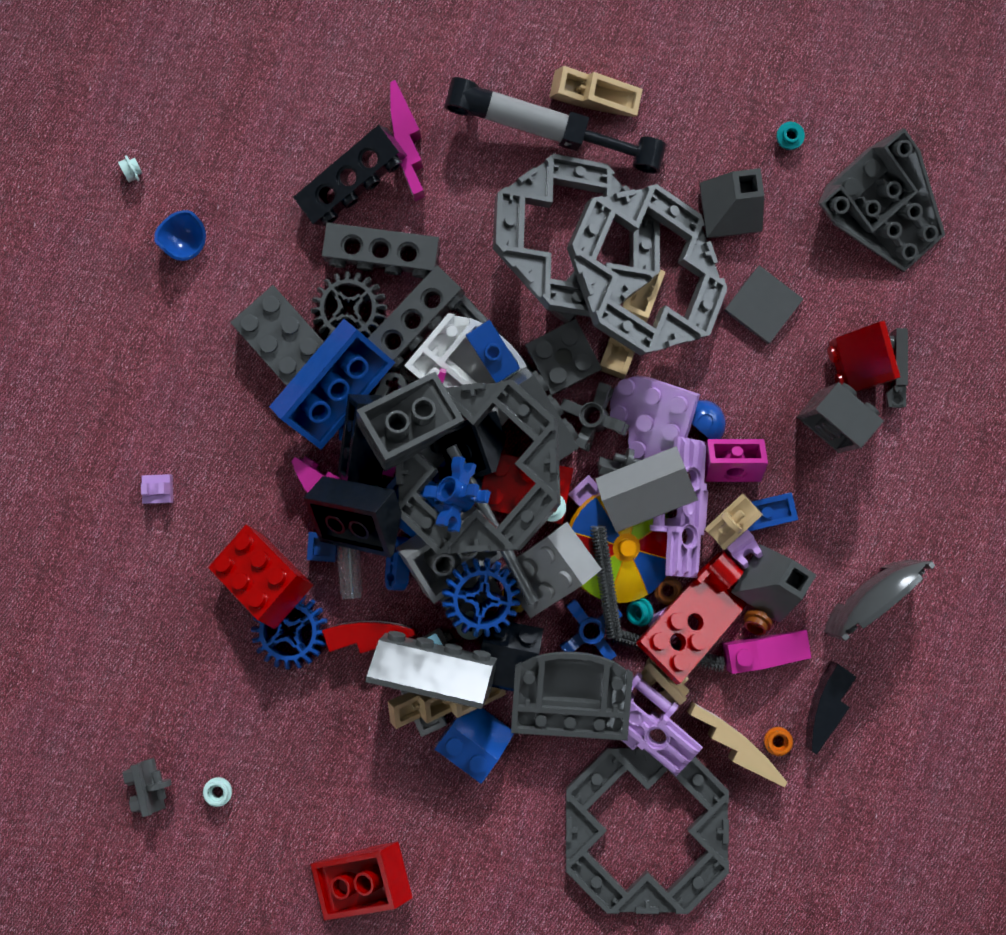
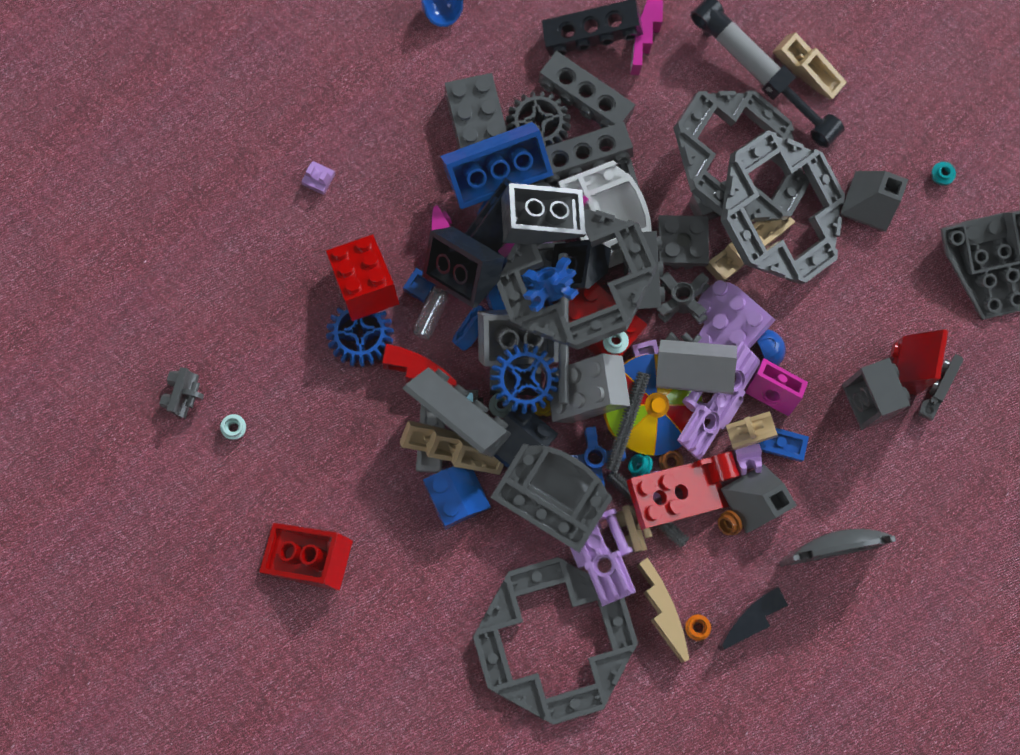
camera: 20 degrees right, 10 degrees down
(492, 351) = (632, 202): blue plate -> none
(763, 304) = (859, 286): dark grey tile -> none
(766, 651) = (725, 550): dark pink slope -> none

